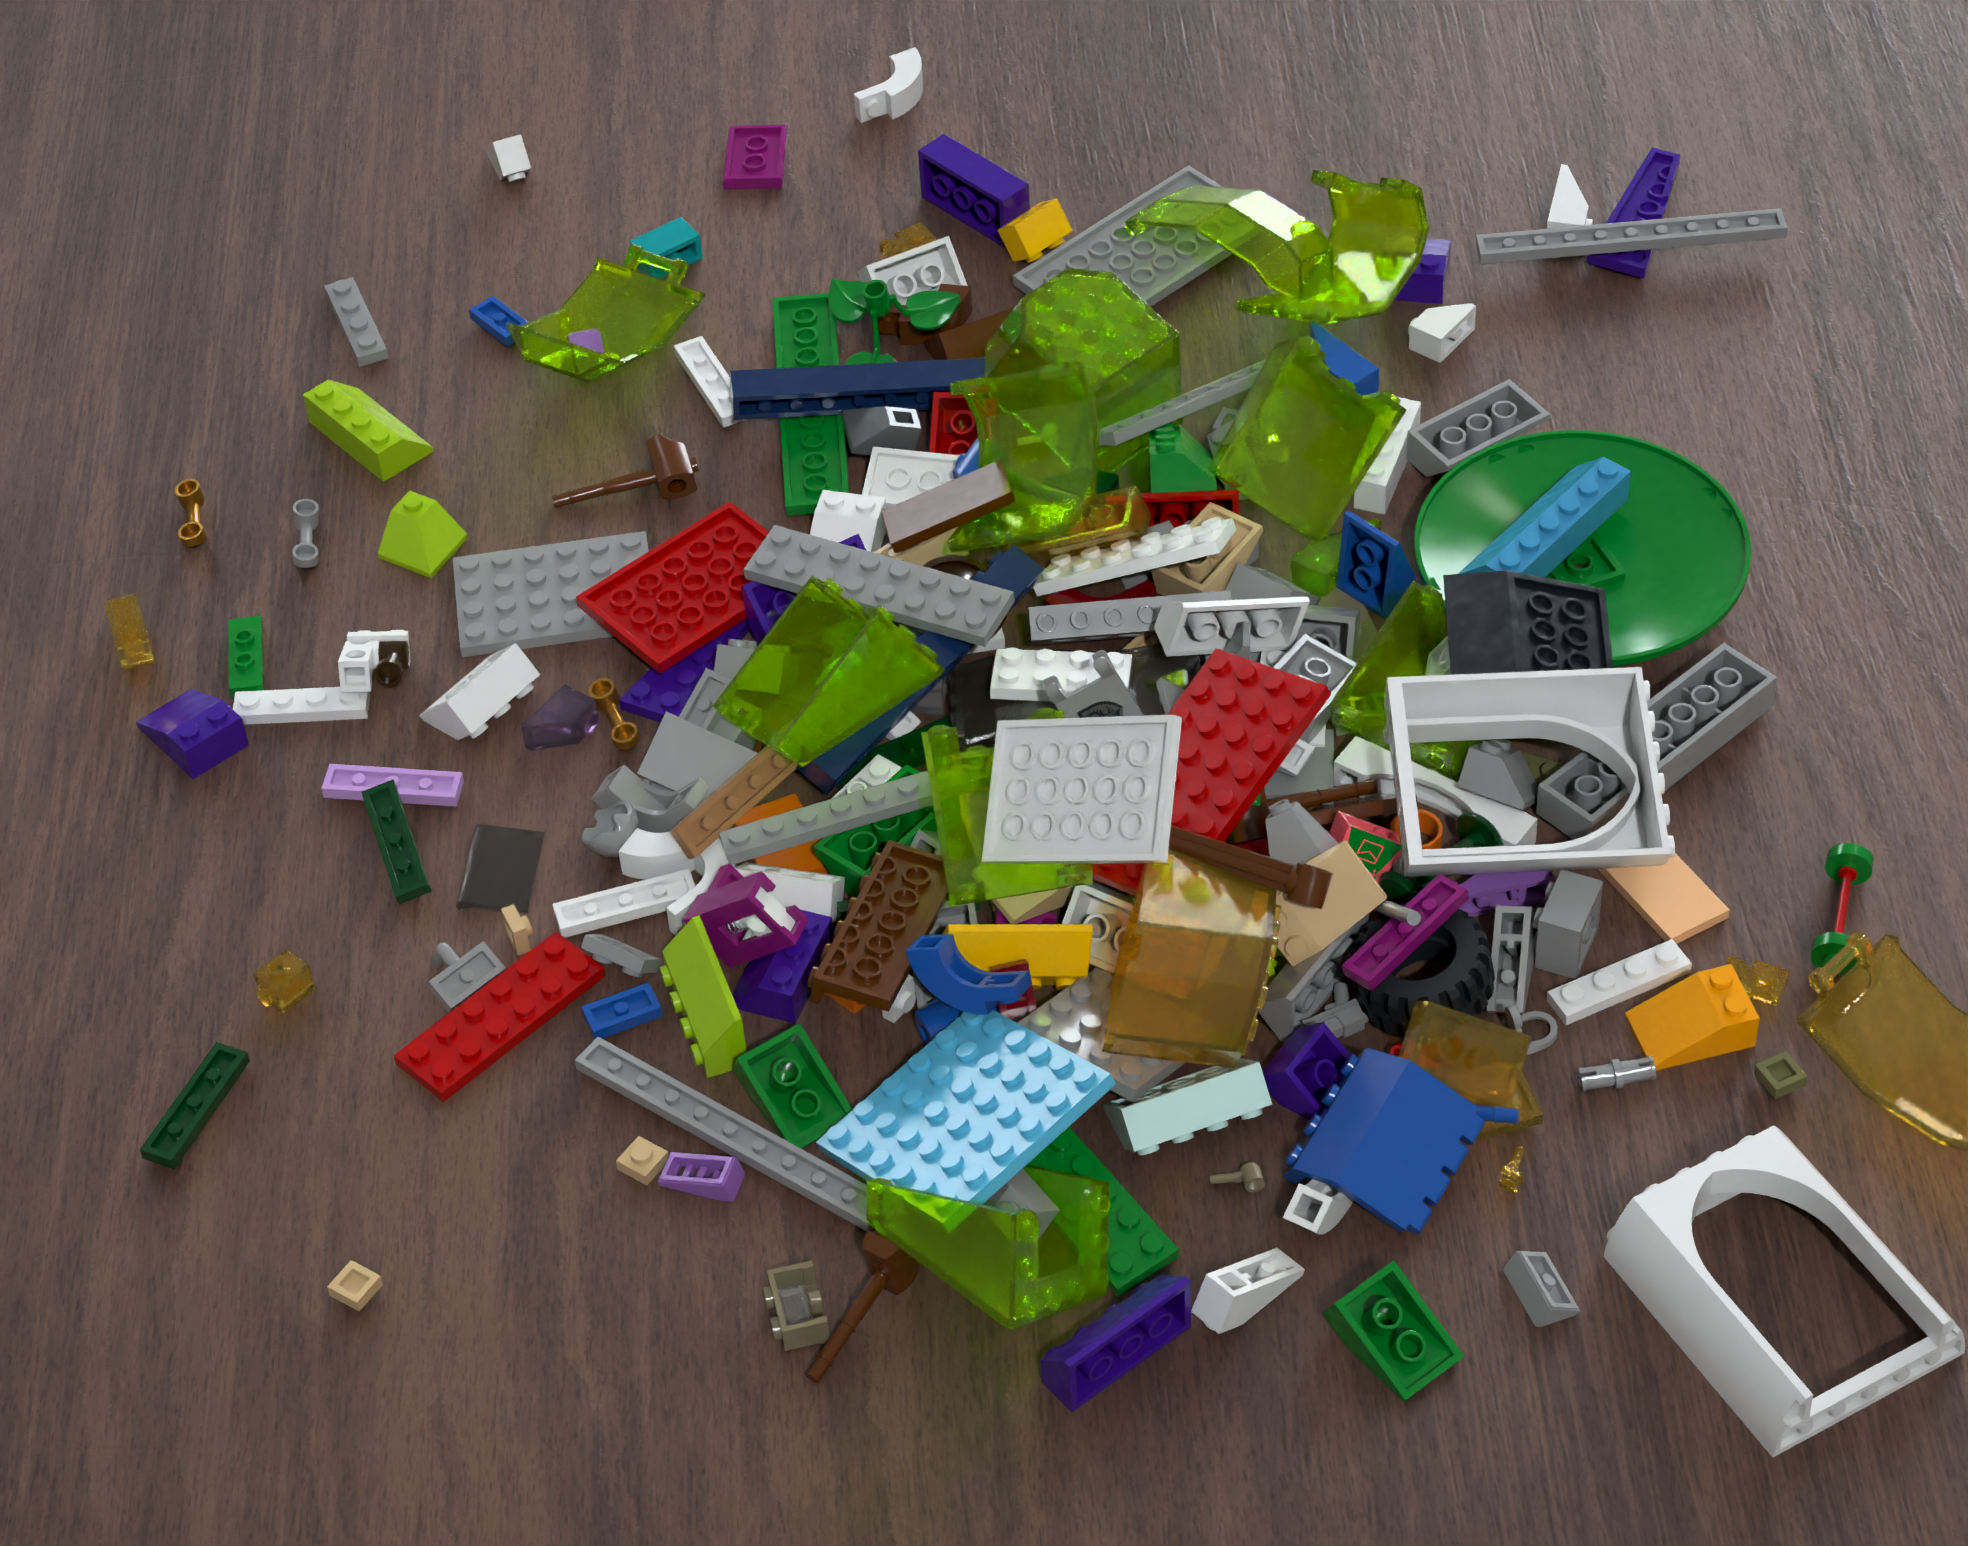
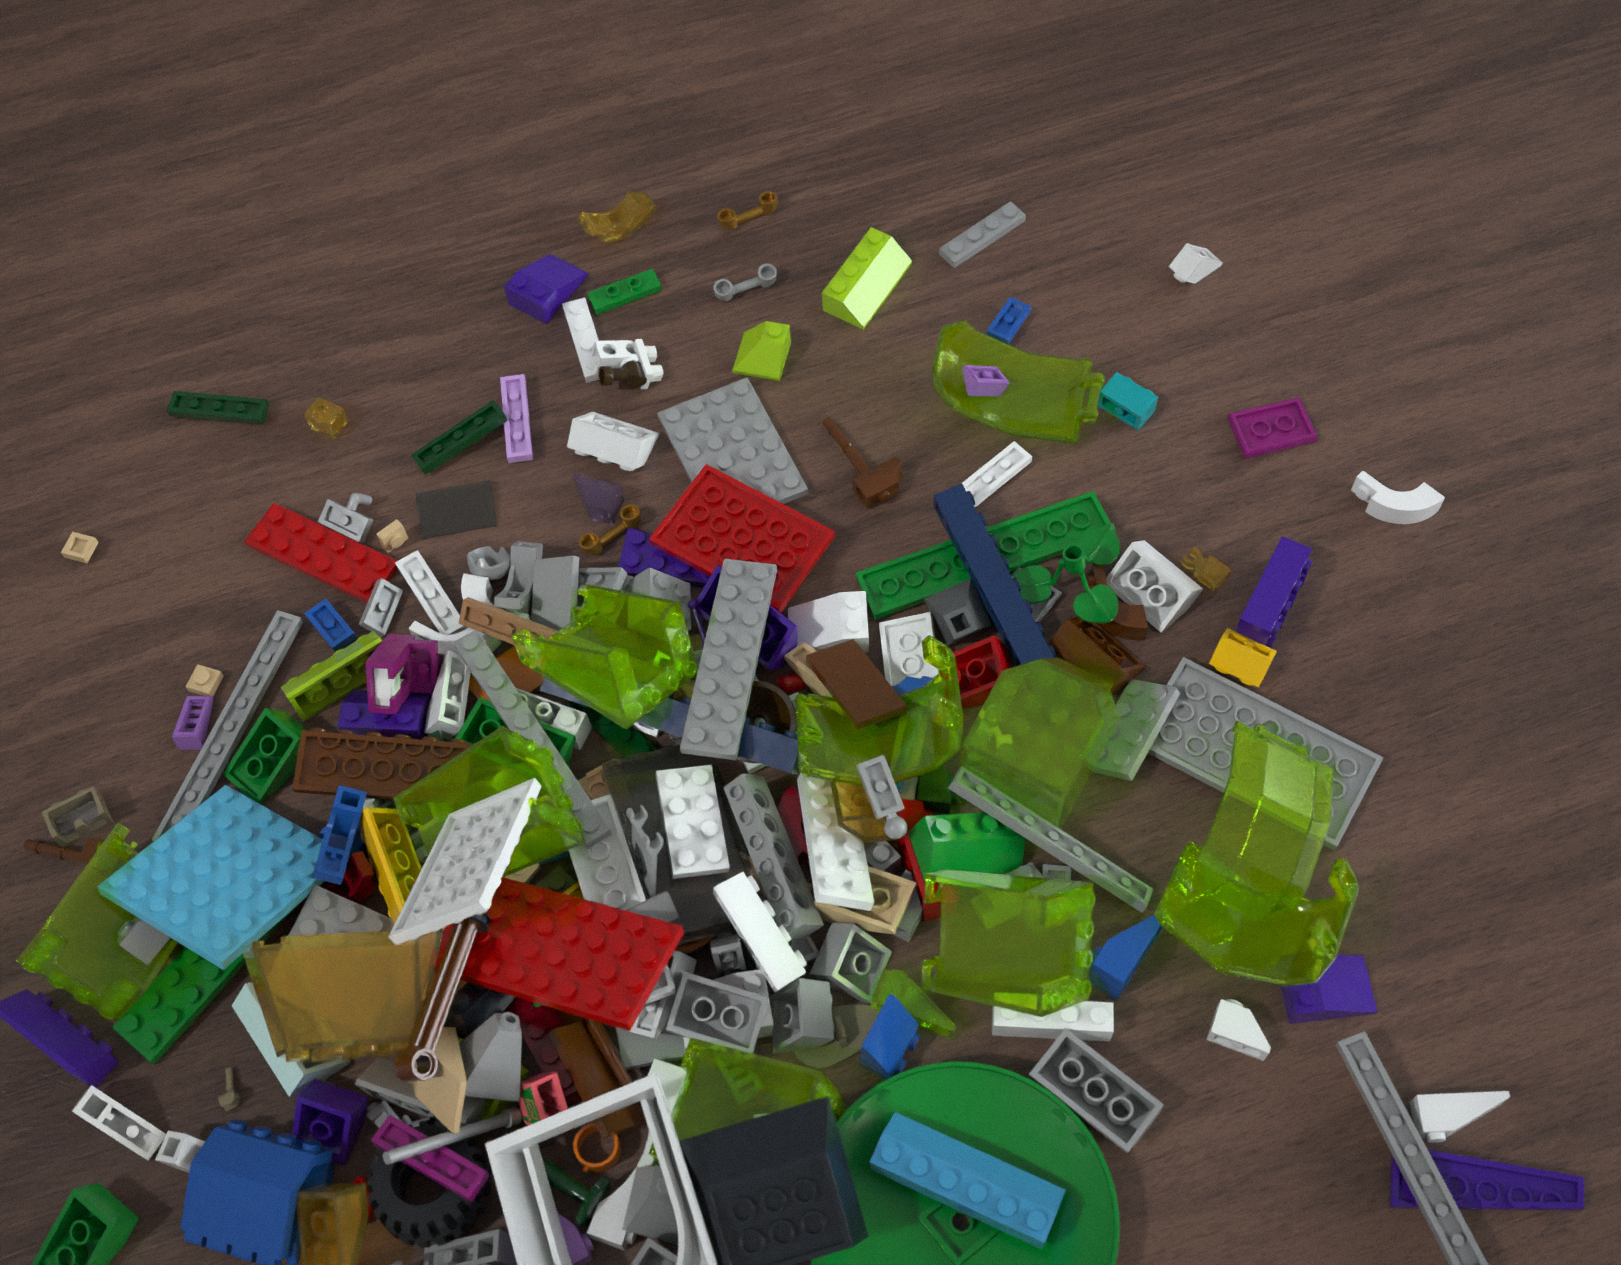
camera: 75 degrees right, 15 degrees up
(1113, 479) = (883, 795): none -> light grey plate

